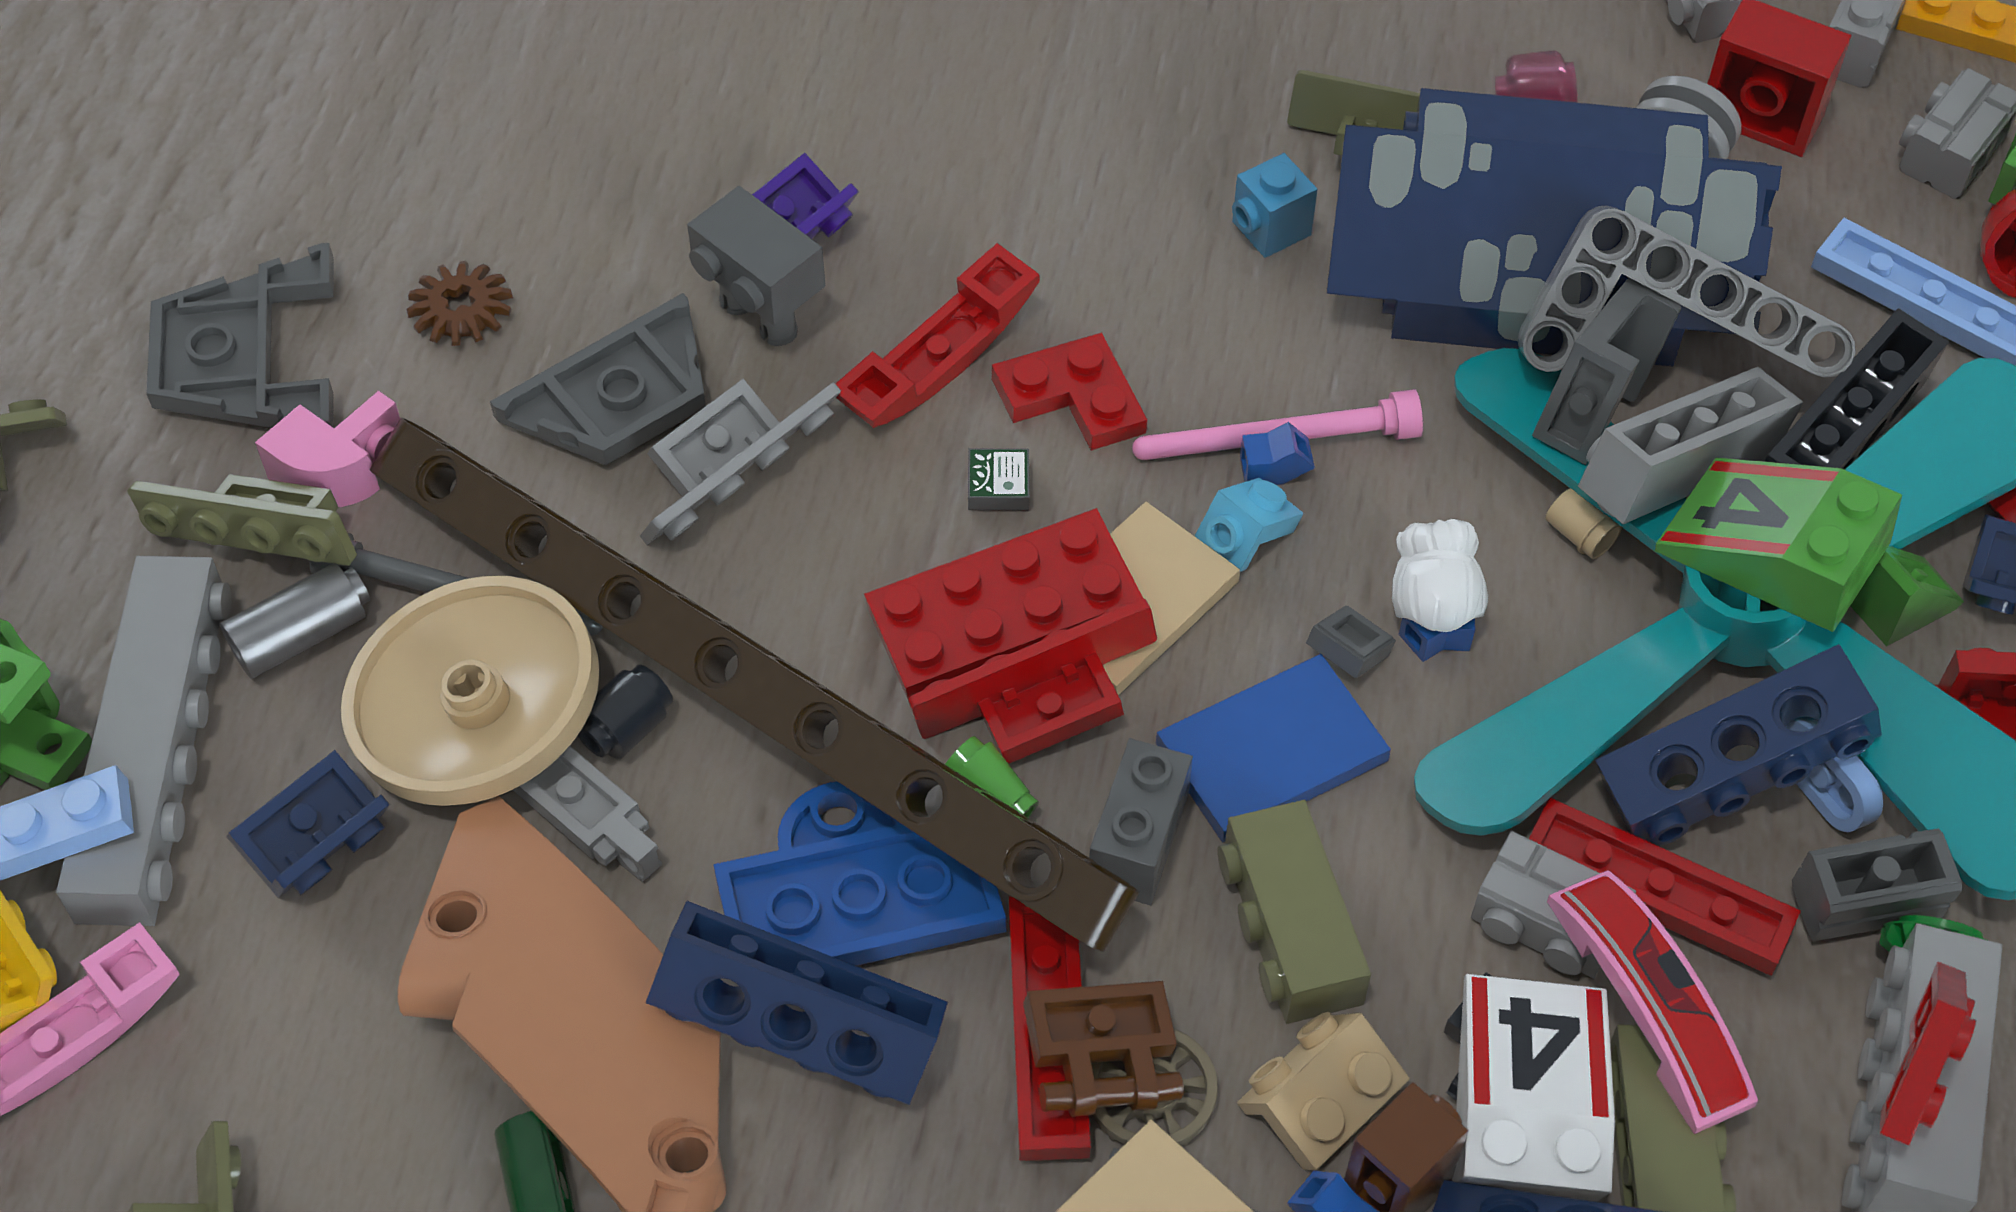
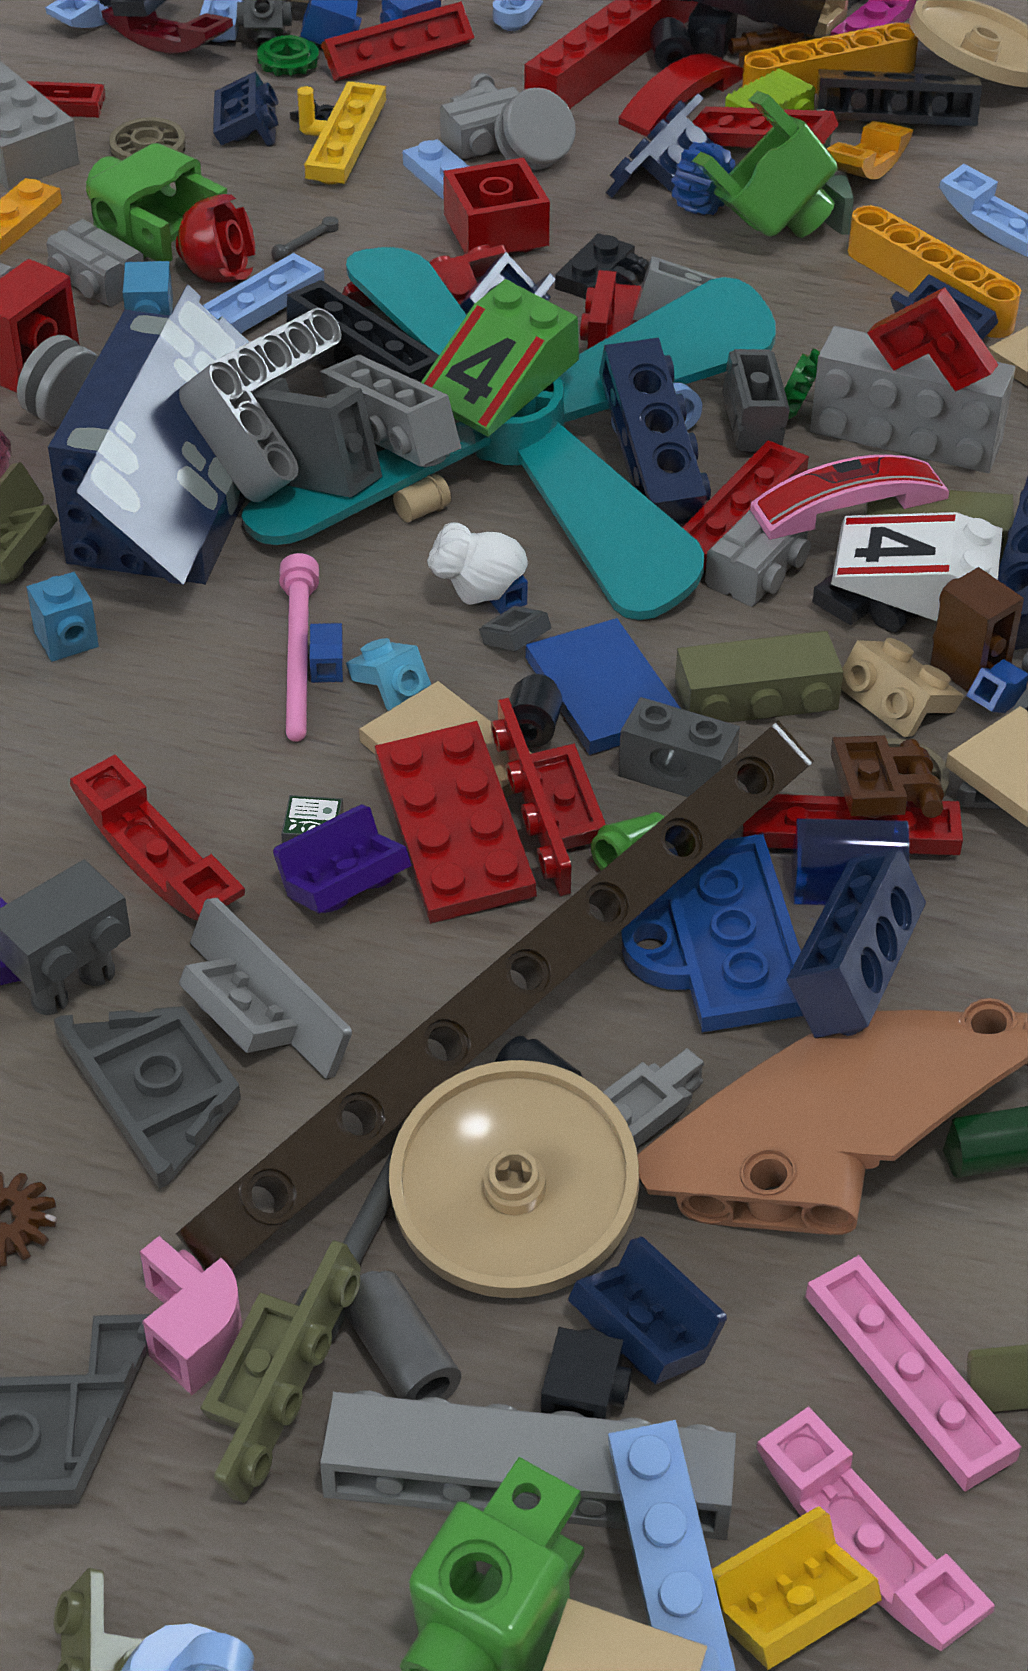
camera: 85 degrees left, 10 degrees down
(232, 772) = (585, 1374): none -> black brick
(234, 1080) = (913, 1373): none -> bright pink plate
(923, 502) = (338, 861): none -> dark purple bracket
(971, 1037) = (826, 846): none -> clear blue brick
(1077, 377) = (214, 762): red plate -> none
(1192, 665) = (537, 708): none -> black brick
(1897, 188) = (148, 287): none -> dark azure brick

